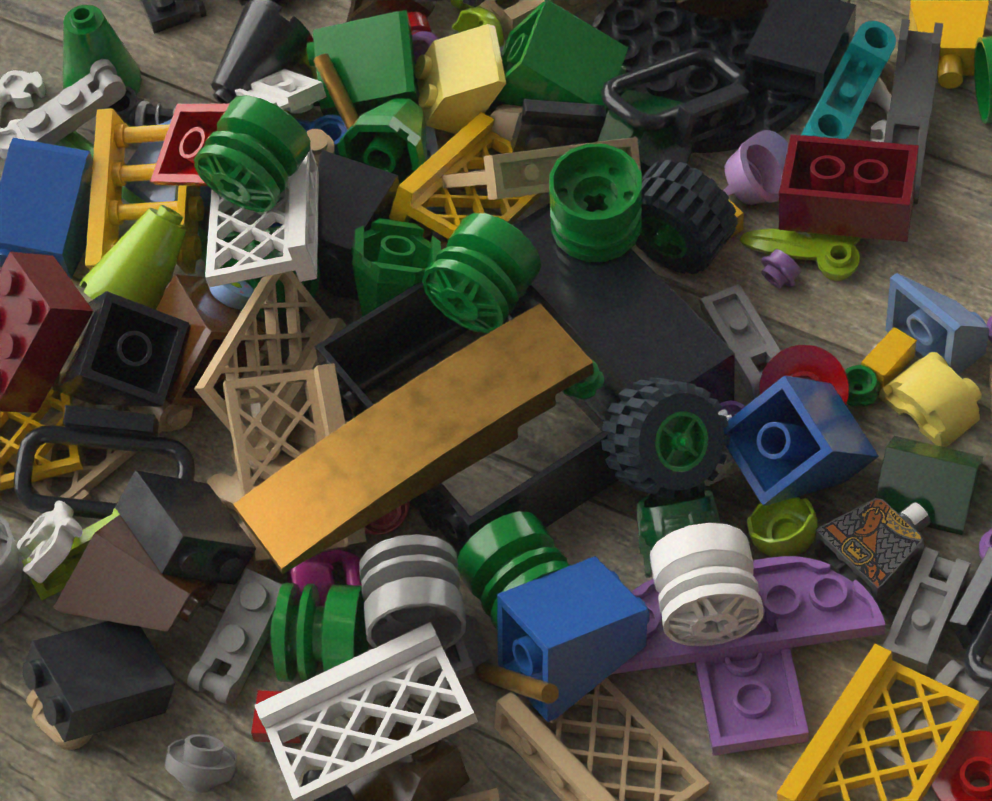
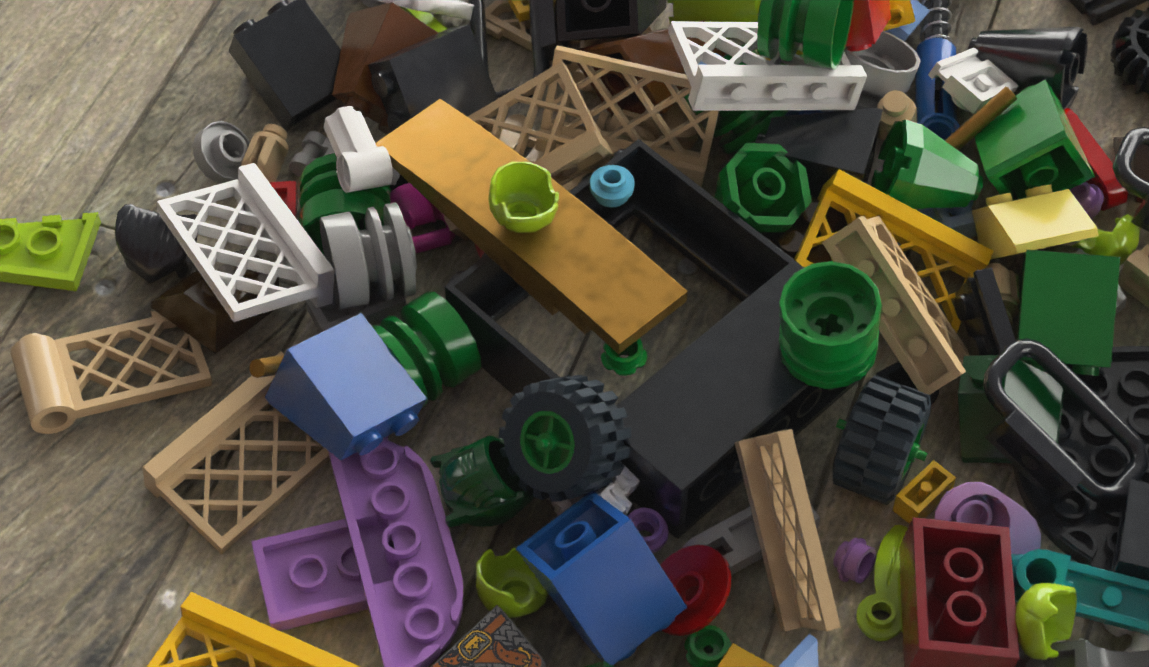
camera: 75 degrees right, 0 degrees up
(211, 720) = (268, 151): none -> tan arm
(306, 579) = (359, 160): none -> white piece
(376, 379) = (611, 194): none -> medium azure plate
(421, 412) = (522, 197): none -> lime hair
(482, 272) = (713, 238): green wheel -> none
(706, 584) = (390, 488): white wheel -> none
(779, 299) = (787, 532): none -> tan fence
(877, 123) = (1045, 616): none -> lime hair

